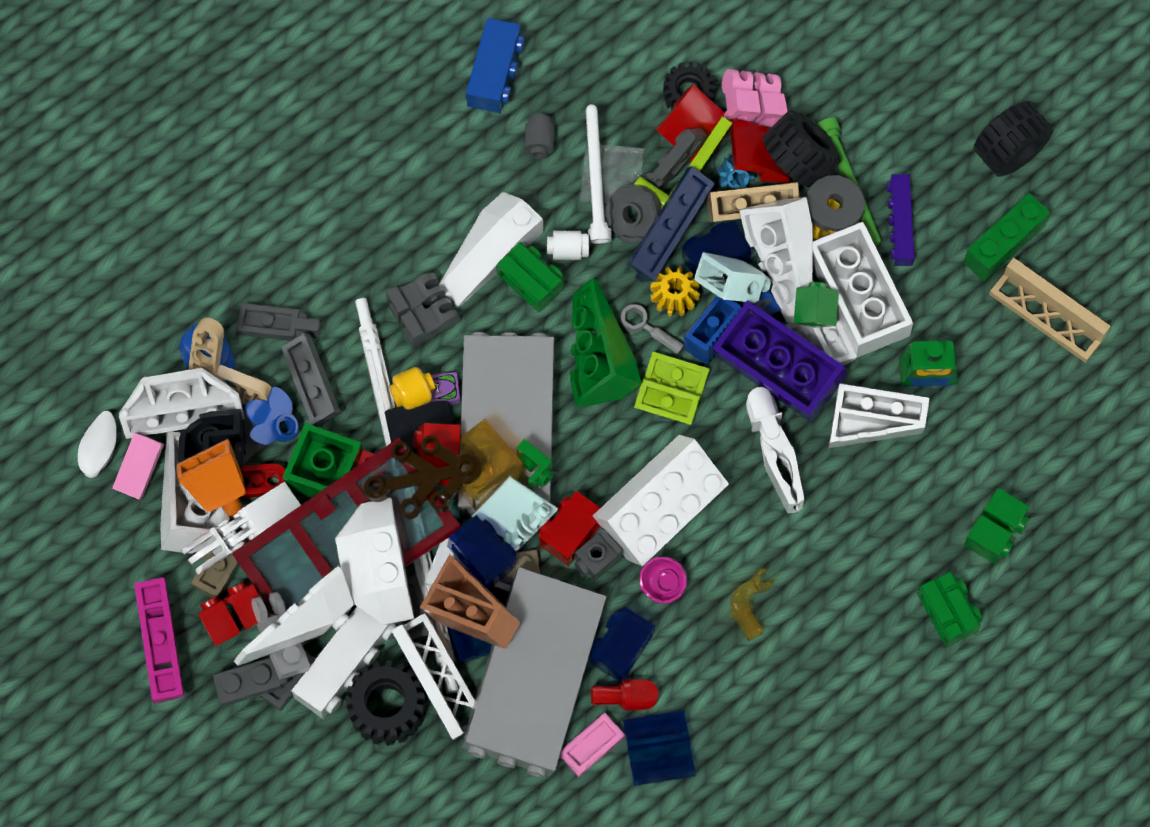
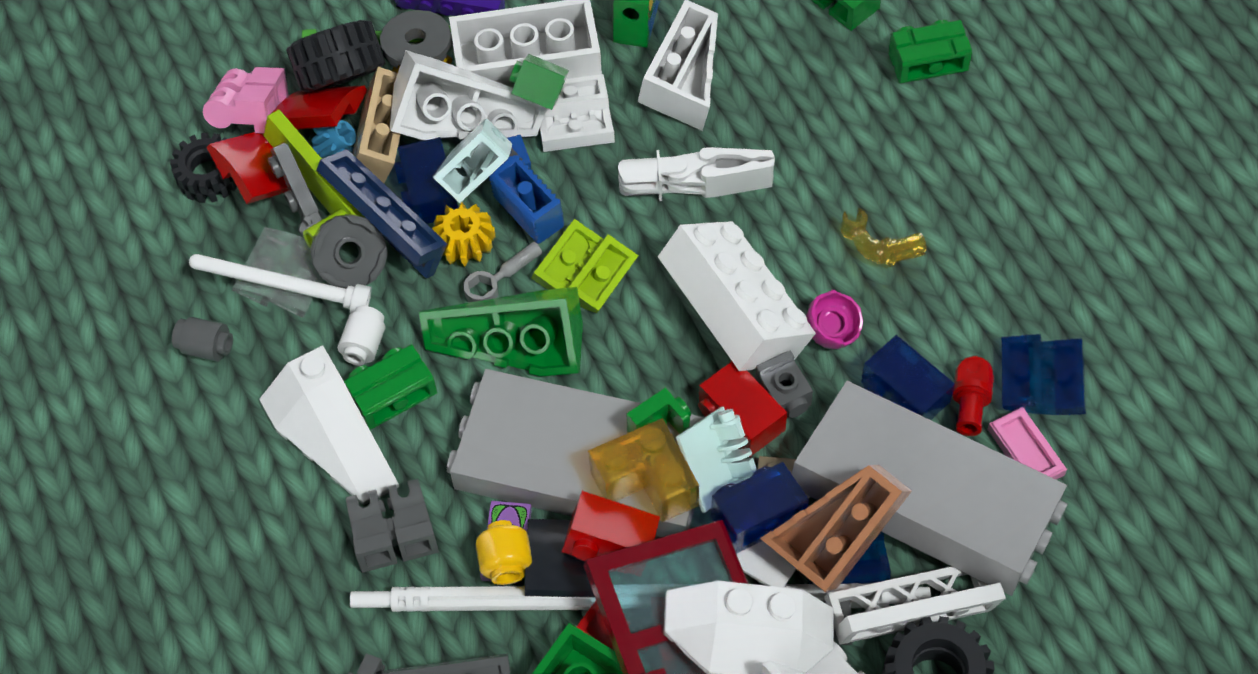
camera: 75 degrees left, 10 degrees down
(427, 477) = (655, 529): dark brown plant -> none
(494, 65) = (83, 368): blue brick -> none
(779, 361) = (593, 134): dark purple brick -> none

